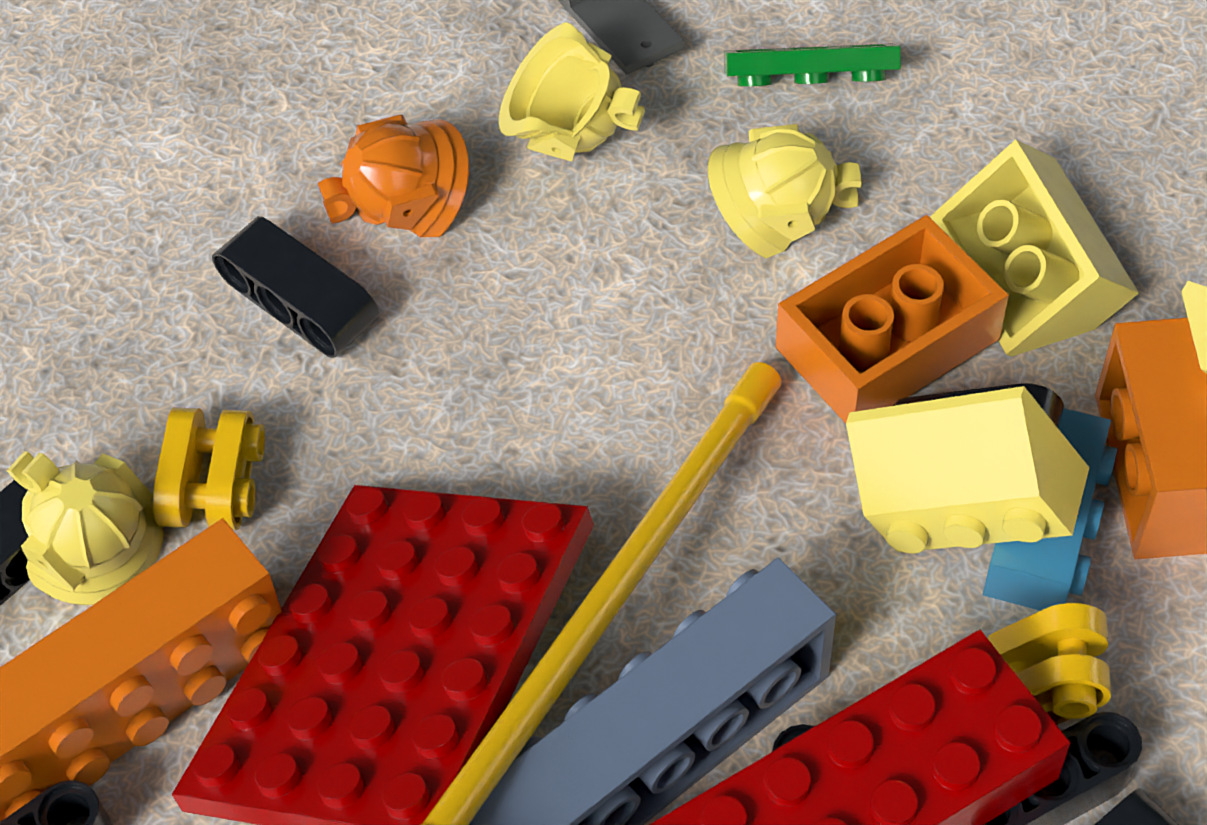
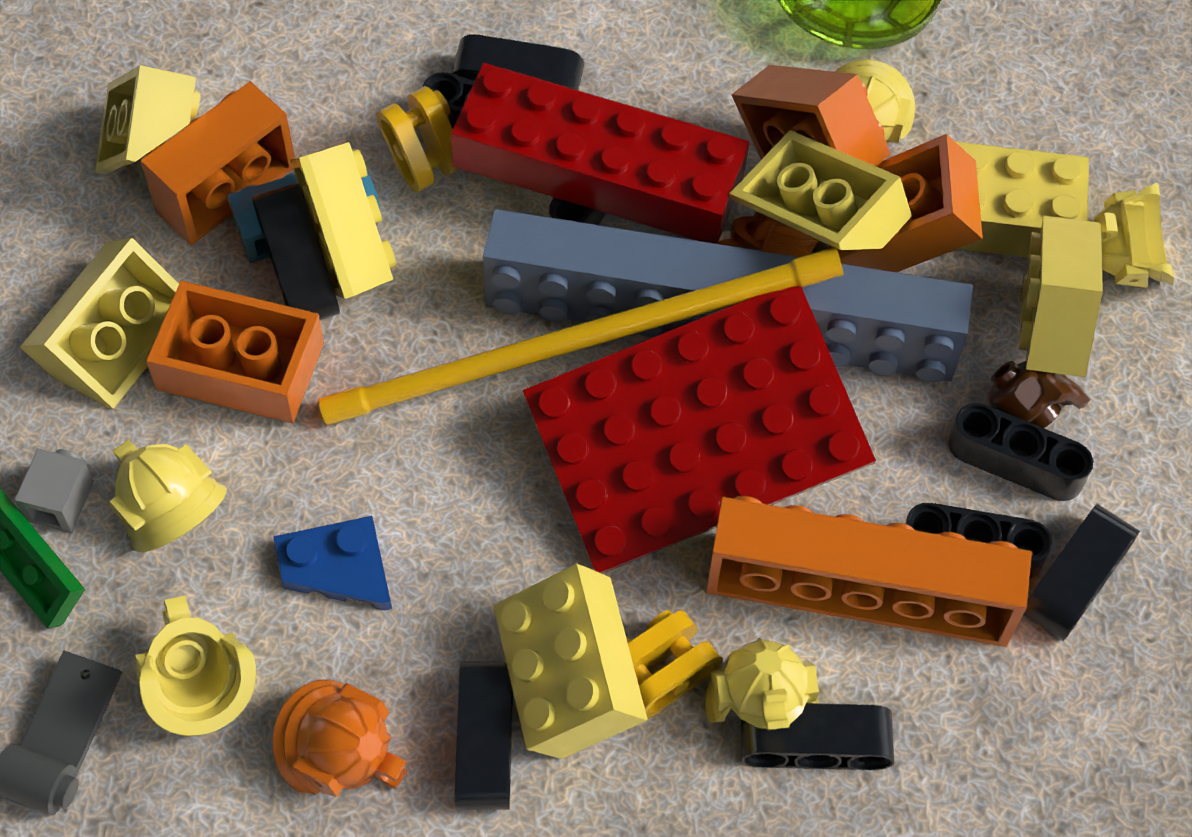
camera: 135 degrees left, 5 degrees up
(273, 367) = (569, 662): none -> light yellow brick
(583, 291) = (335, 561): none -> blue wing
(861, 113) = (54, 489): none -> light grey brick

